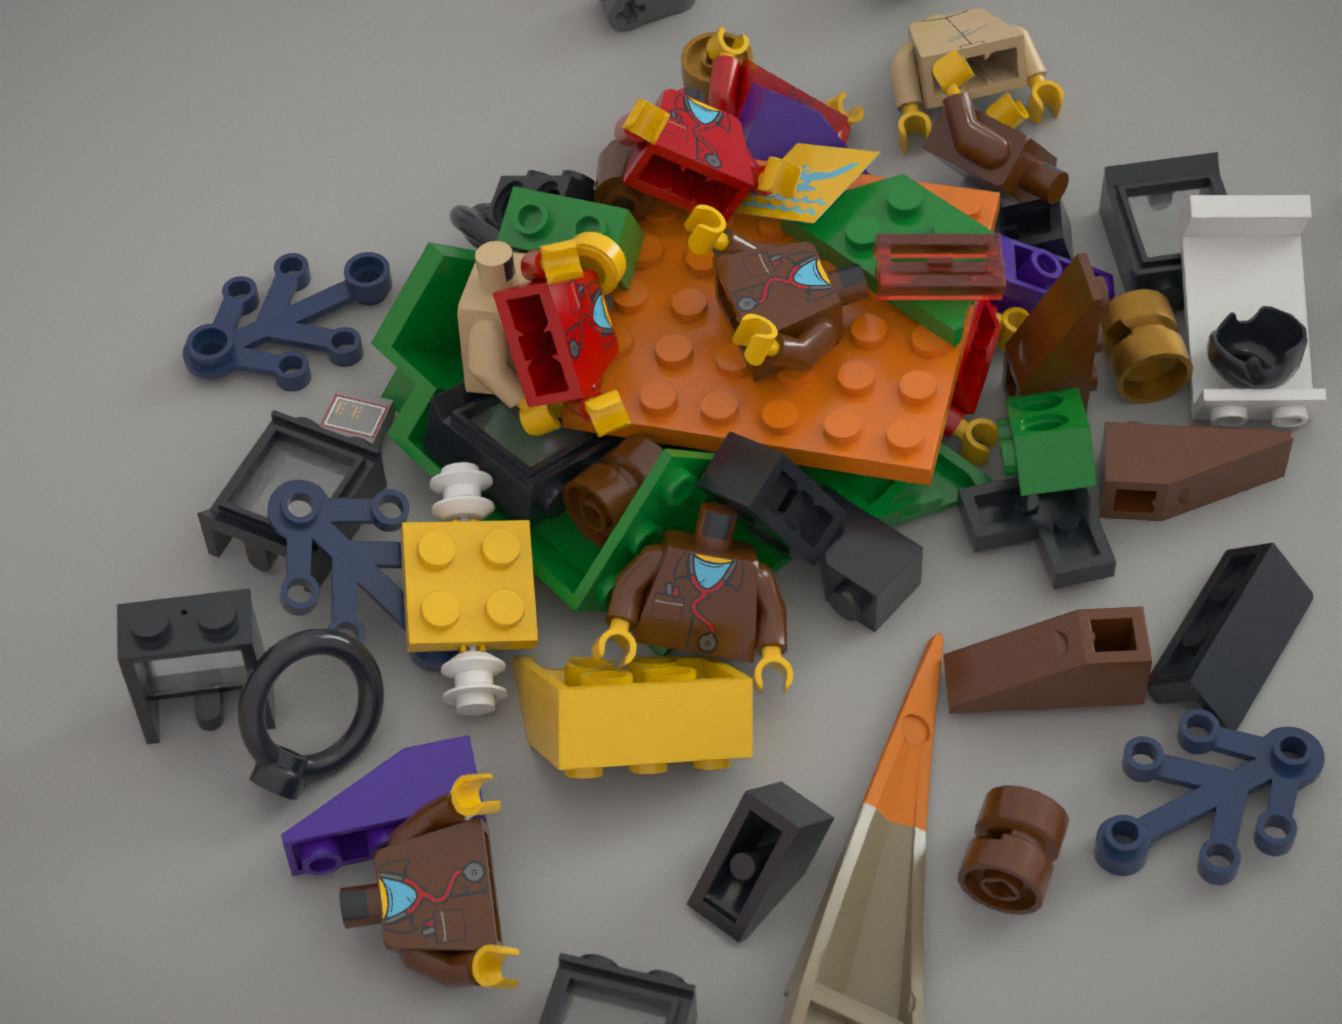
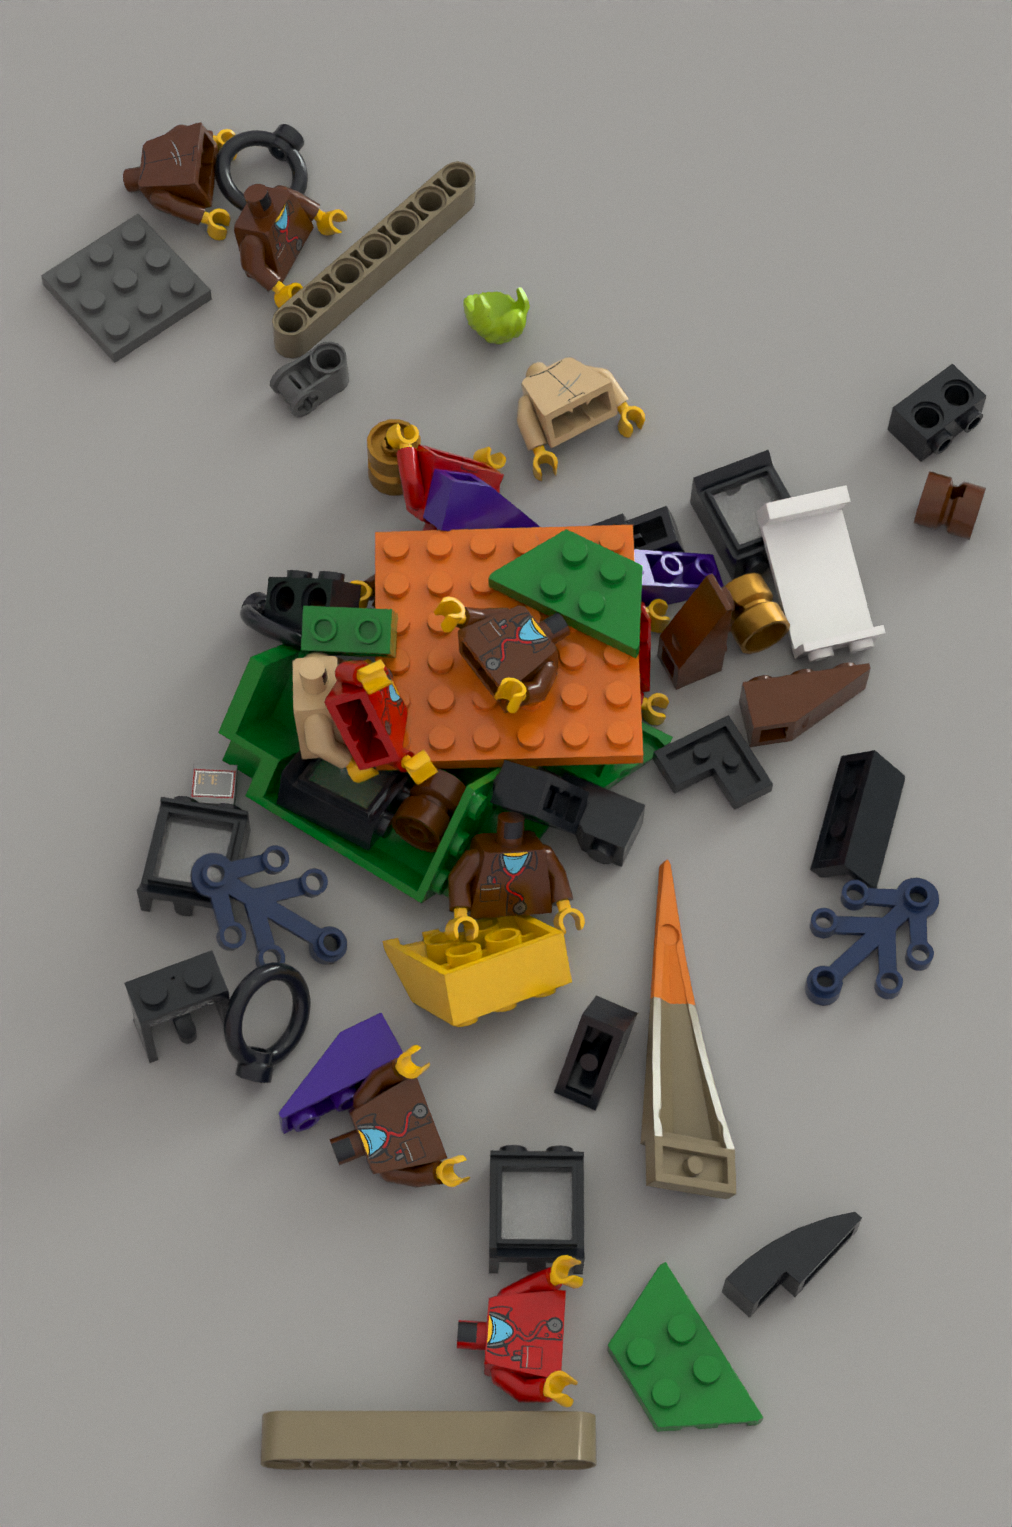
camera: 20 degrees left, 10 degrees up
(221, 348) = (134, 718): dark blue plant -> none
(468, 587) = (345, 903): yellow plate -> none
(603, 256) = (379, 647): yellow tile -> none
(610, 186) = (369, 571): reddish brown brick -> none
(696, 155) = (419, 549): red torso -> none
(824, 178) = (499, 550): yellow sticker -> none
(940, 276) = (580, 614): clear red tile -> none
(988, 145) = (609, 478): reddish brown torso -> none
(1013, 849) = (758, 1007): reddish brown wheel -> none
(1047, 442) = (708, 706): green brick -> none
(1054, 664) = (750, 870): reddish brown slope -> none
(1259, 350) = (832, 605): black hair -> none

